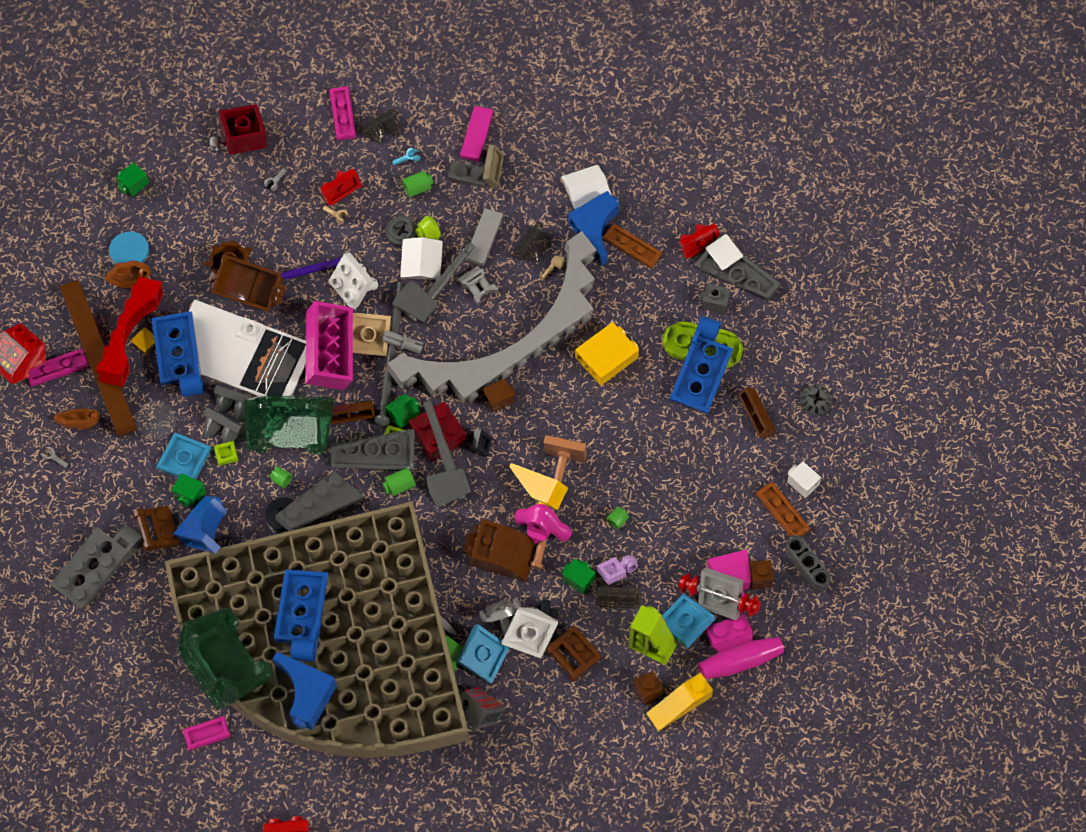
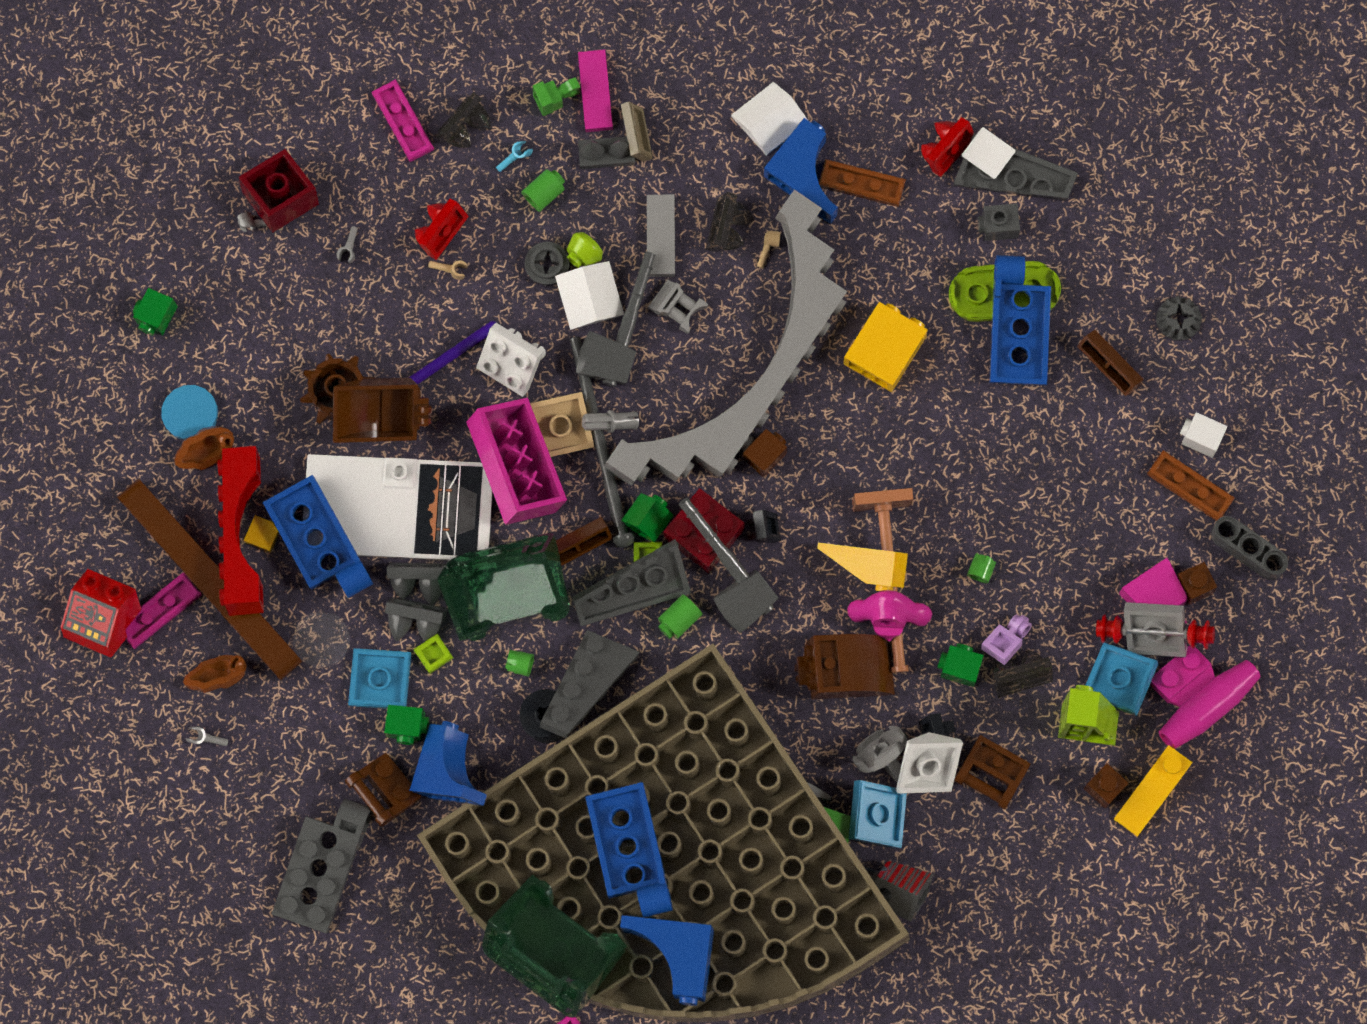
camera: 15 degrees left, 10 degrees up
(444, 127) = (550, 97): none -> bright green piece

